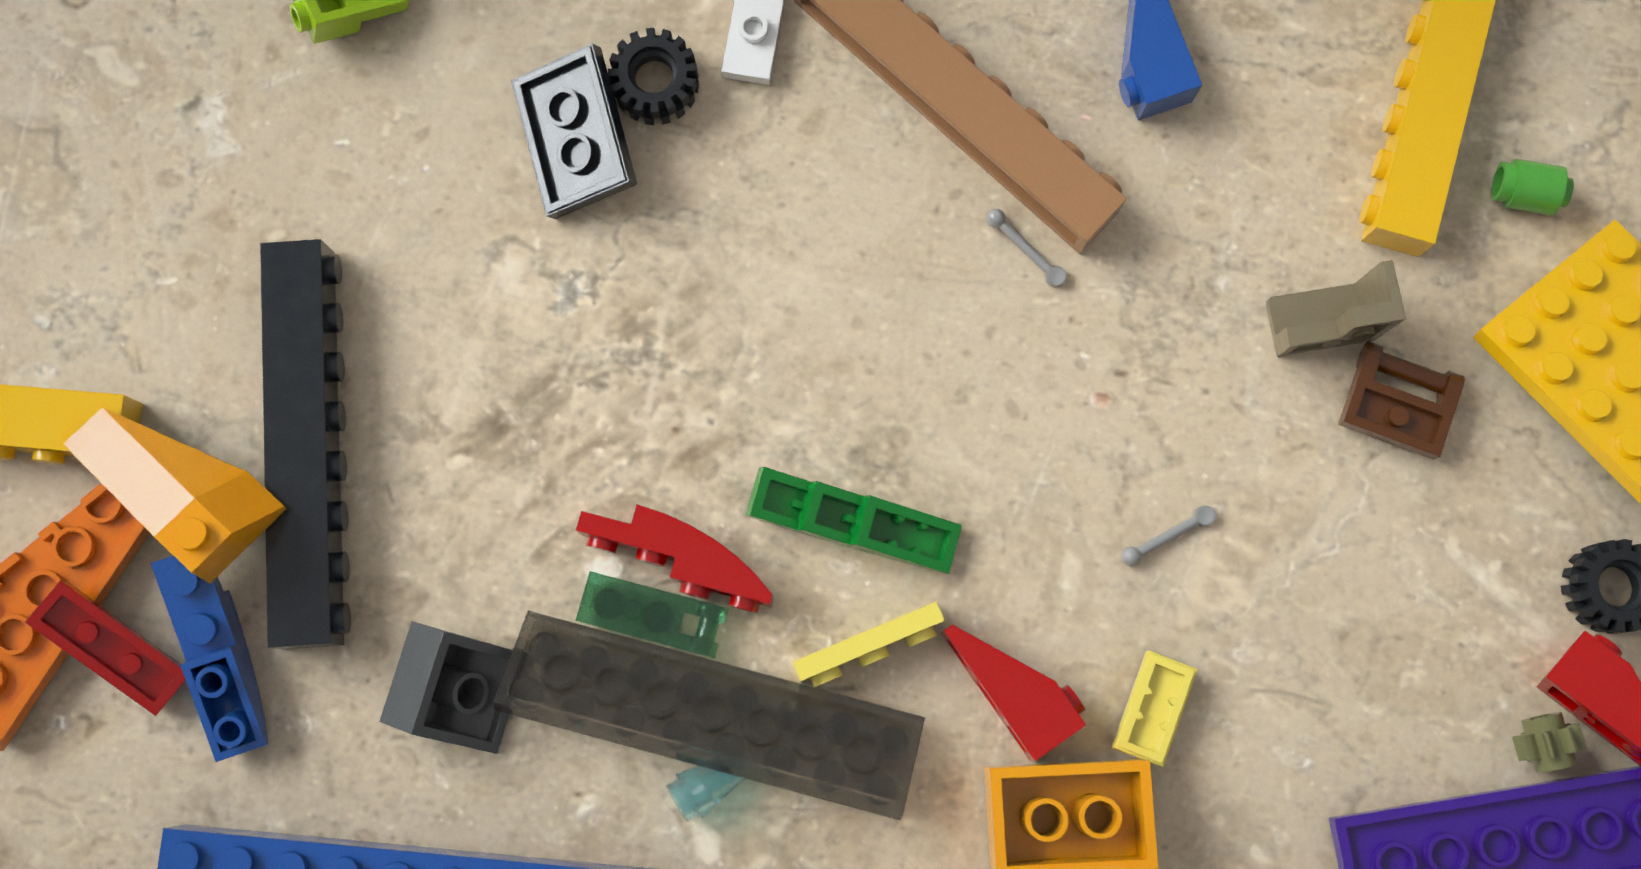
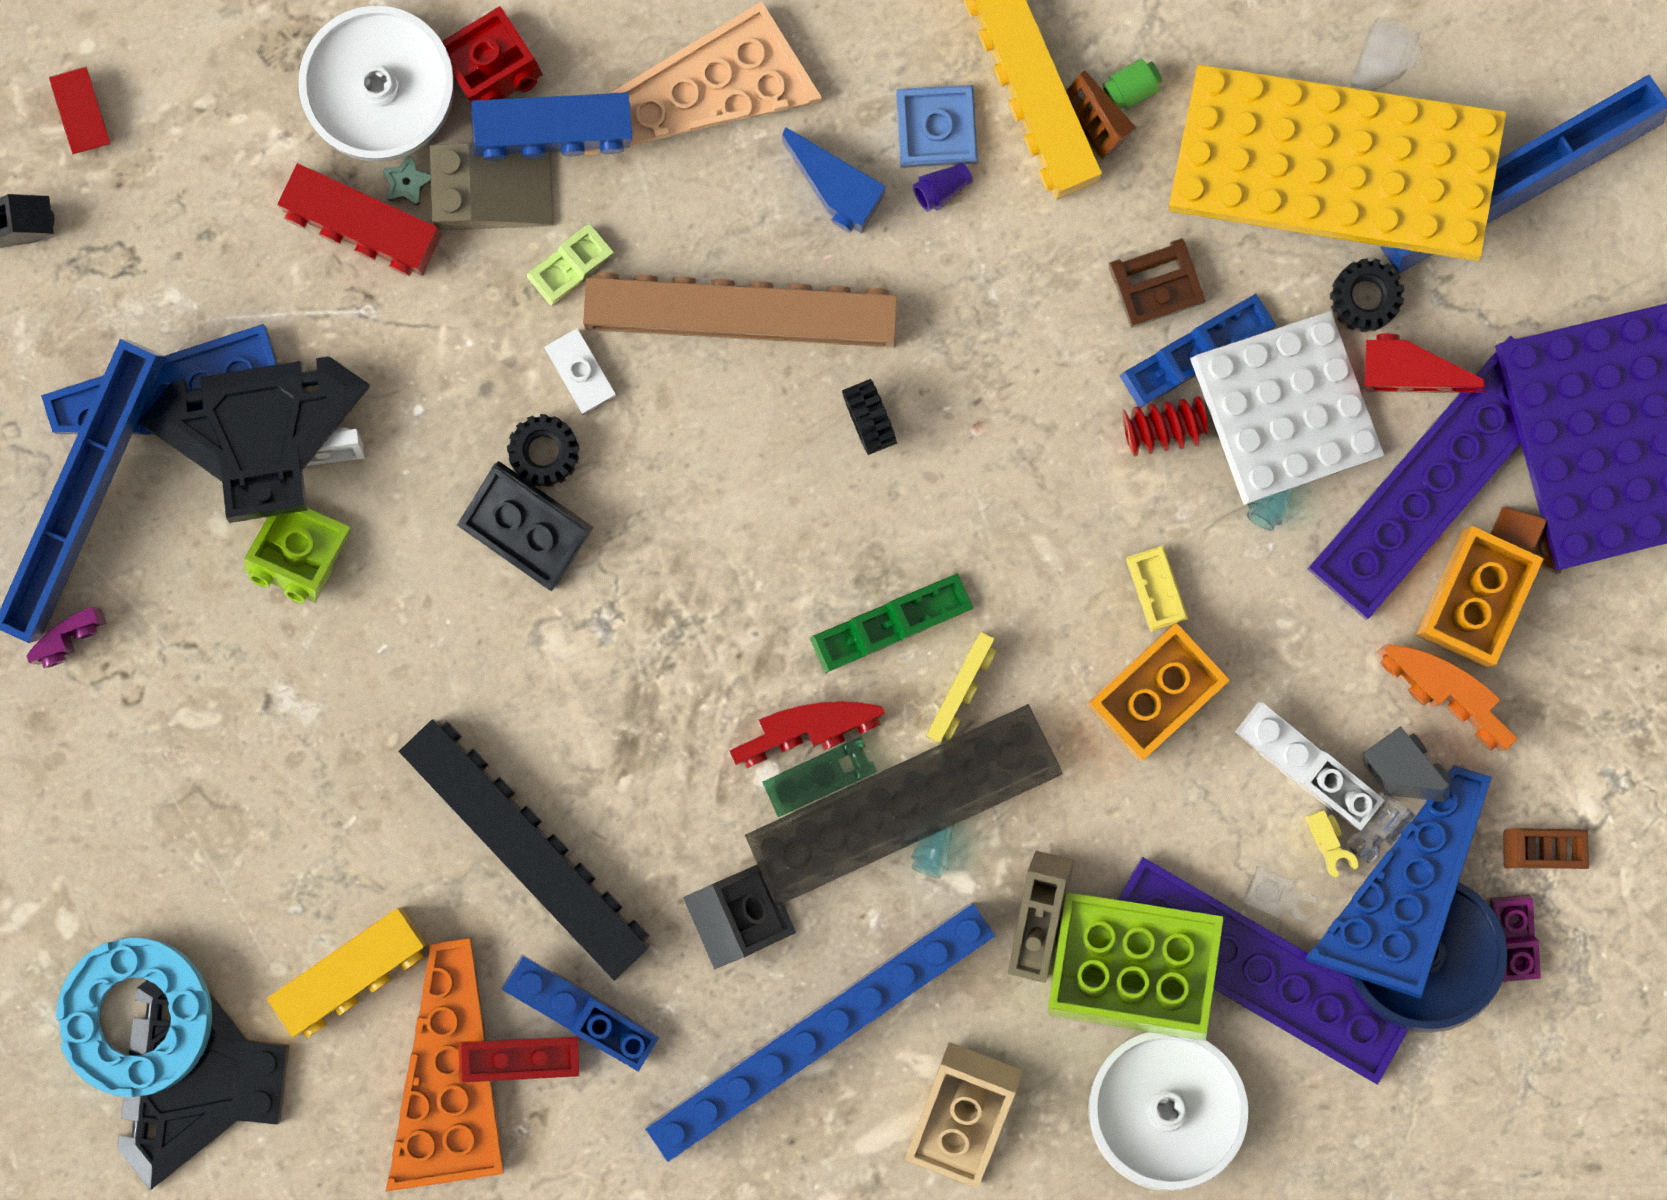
camera: 40 degrees left, 5 degrees up
(181, 495) = (488, 934): light orange wedge -> none
(1001, 295) = (869, 416): none -> black tyre
(1025, 700) = (1080, 645): red slope -> none
(1054, 275) = (889, 373): light grey hinge -> none
(1202, 516) = (1095, 449): light grey hinge -> none
(1256, 134) = (941, 186): none -> dark purple cone
(1297, 76) = (936, 126): none -> medium blue tile
(1299, 548) = (1165, 426): none -> red piece
(1337, 314) = (1074, 264): dark tan panel -> none
(1345, 718) = (1269, 510): none -> clear light blue cone
(1390, 501) = (1172, 364): none -> blue slope
(1442, 633) = (1287, 407): none -> white plate
(1487, 202) = (1111, 126): none -> dark orange slope
(1549, 742) = (1397, 421): olive gear -> none

